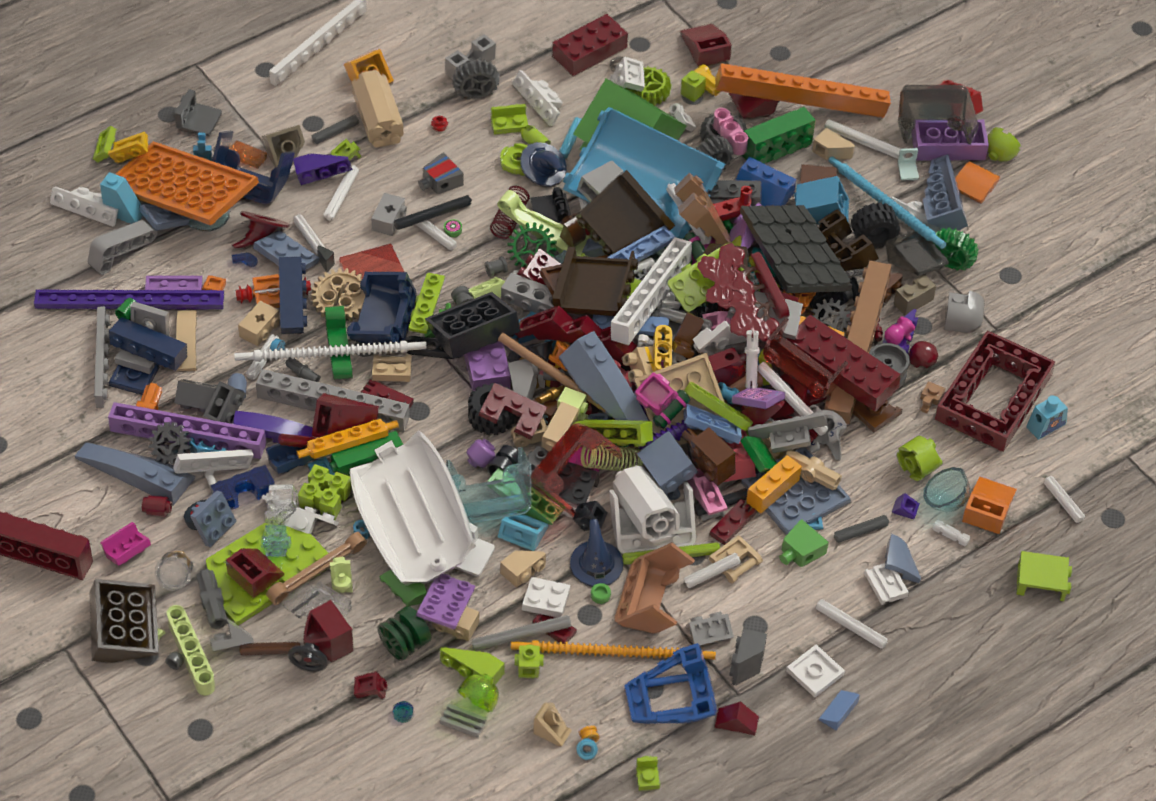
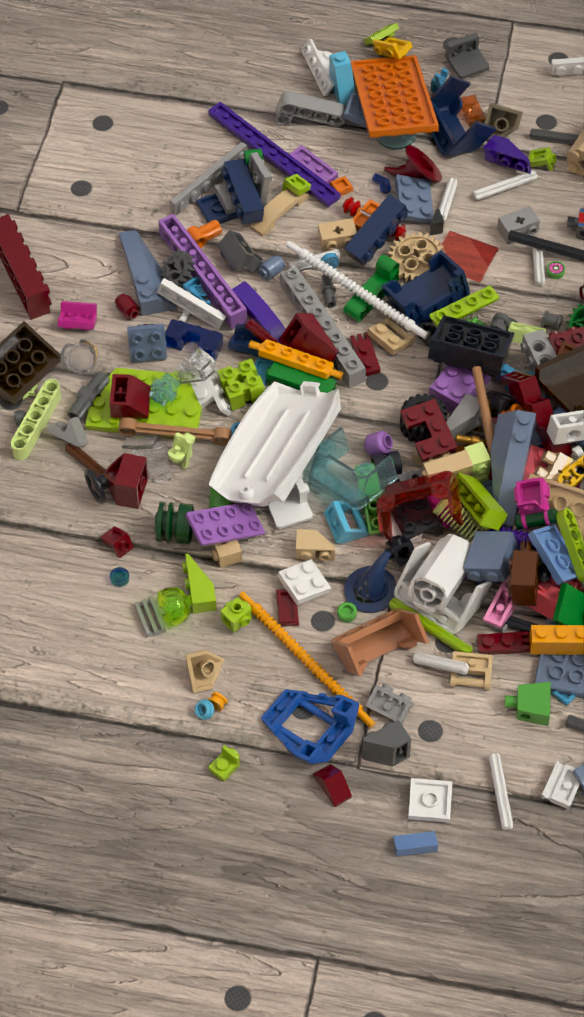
camera: 50 degrees right, 5 degrees up
(182, 308) = (296, 184): none -> lime bracket
(224, 403) = (245, 268): dark grey brick -> none
(521, 632) = (256, 591): light grey axle -> none

